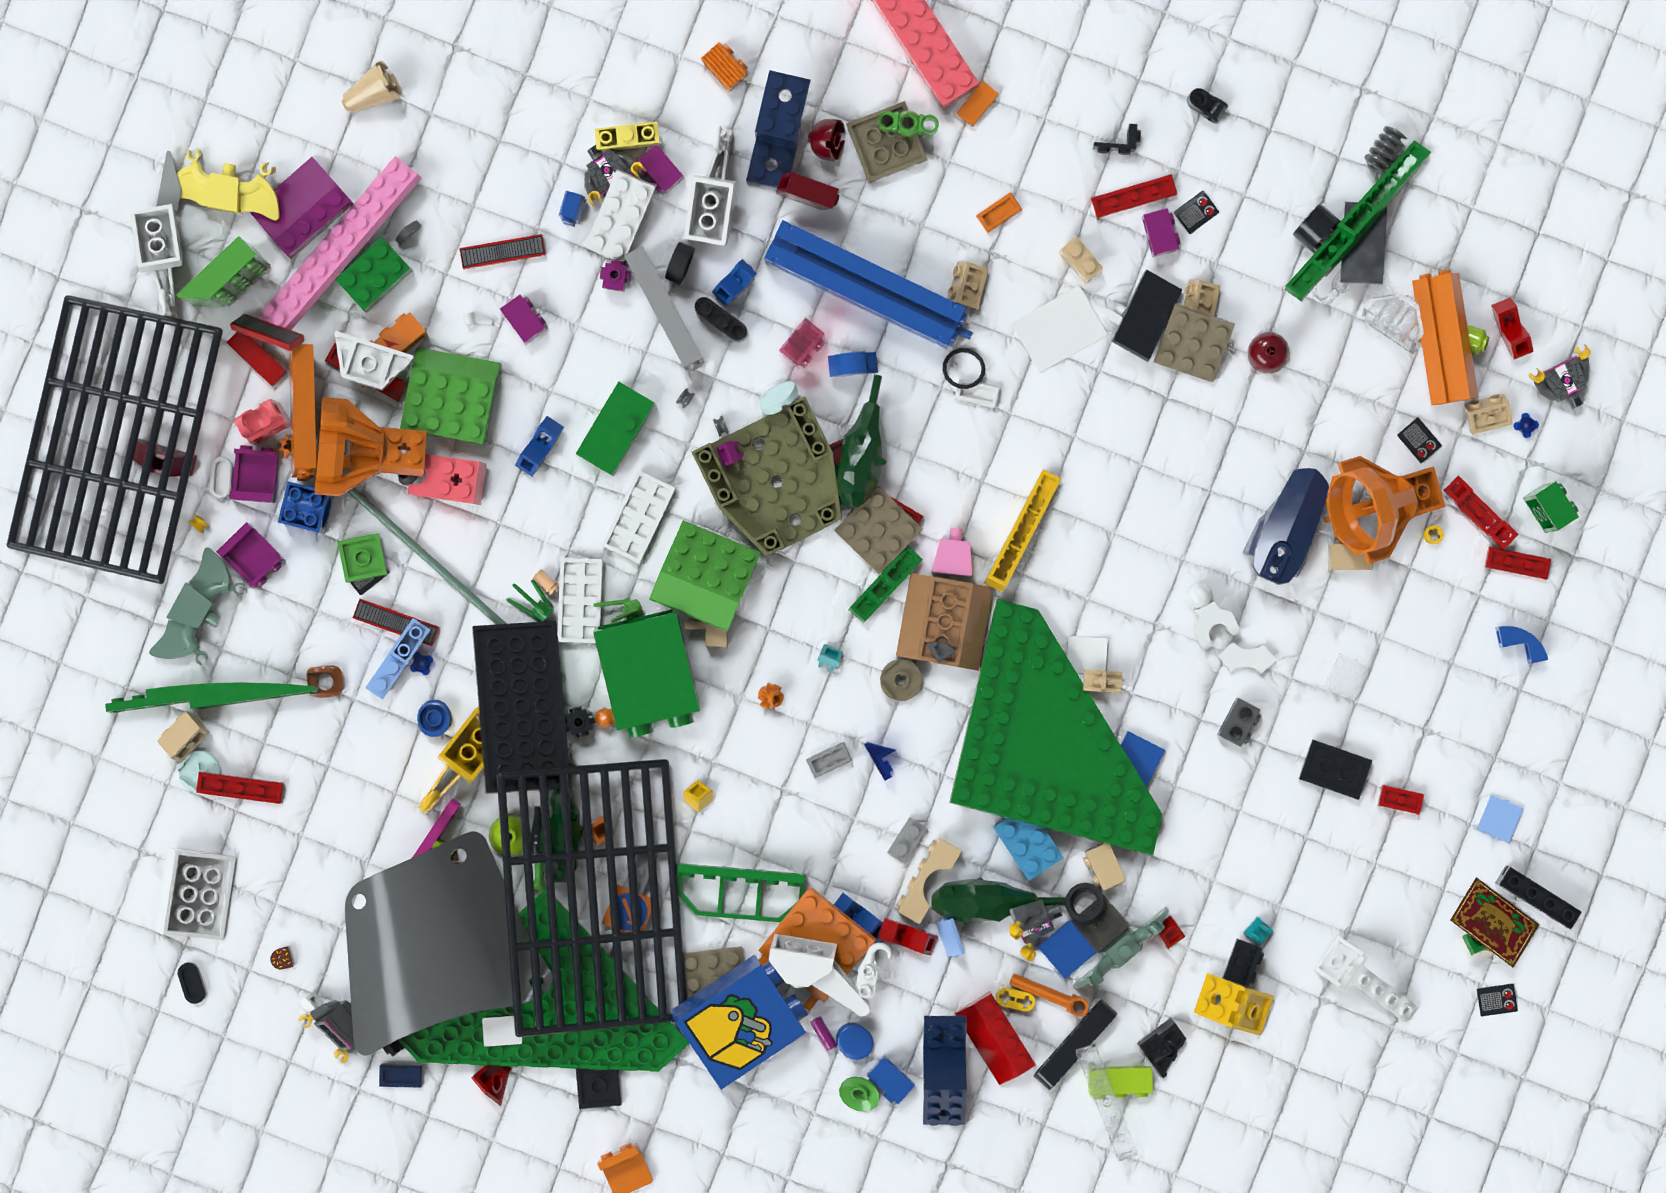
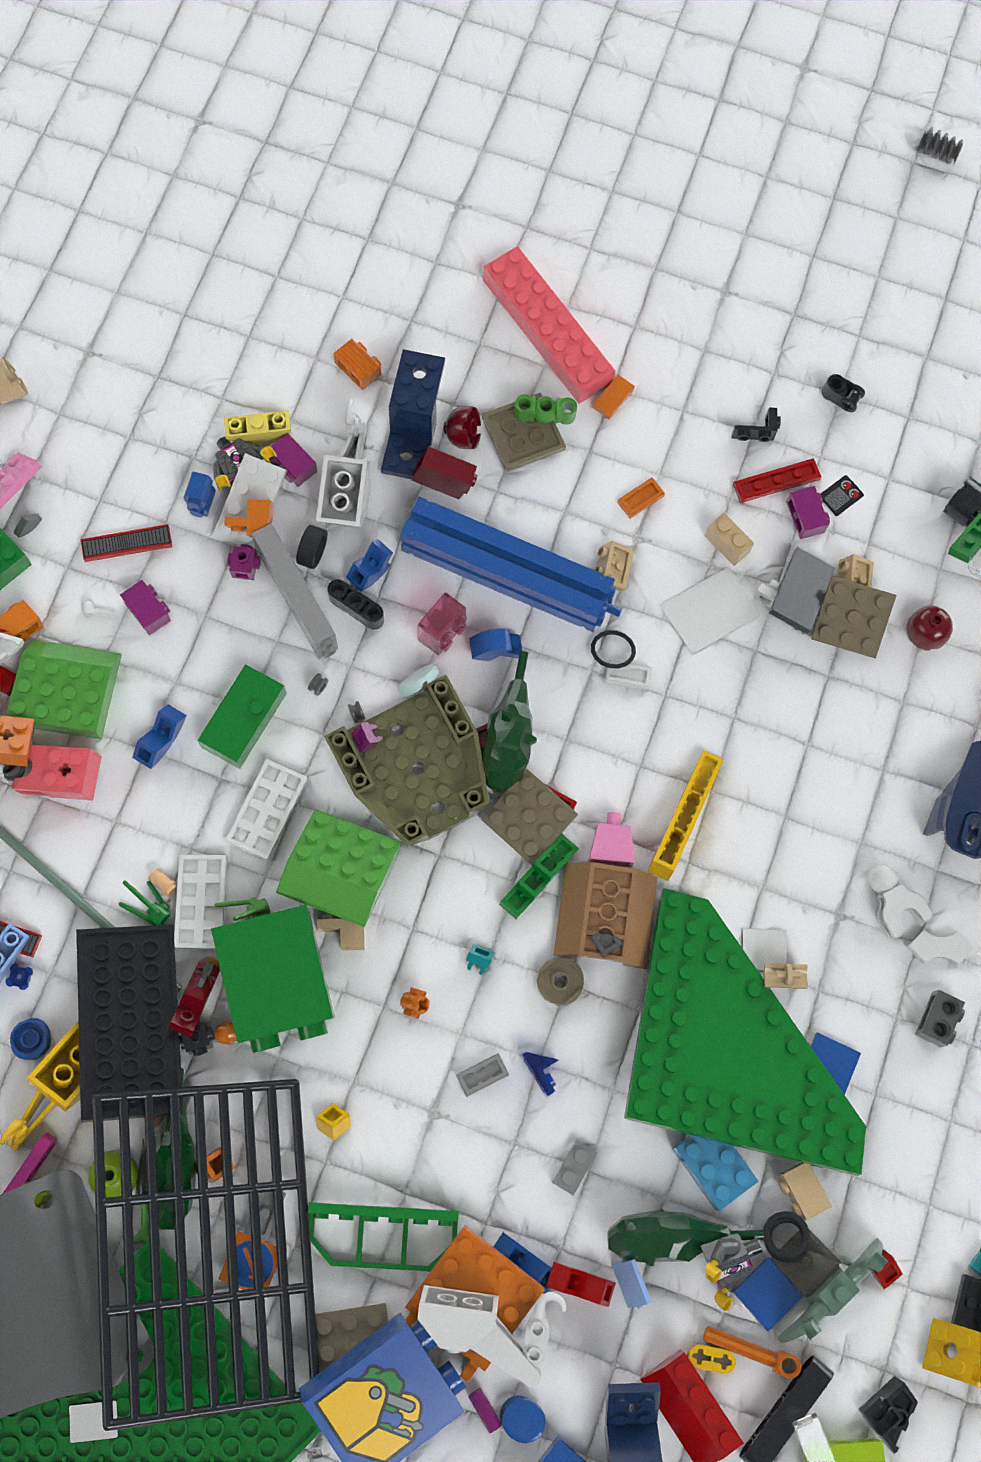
camera: 10 degrees left, 15 degrees down
(578, 686) = (195, 996): none -> dark red plate
(628, 238) = (258, 516): none -> orange brick
(942, 856) = (587, 1243): tan arch -> none

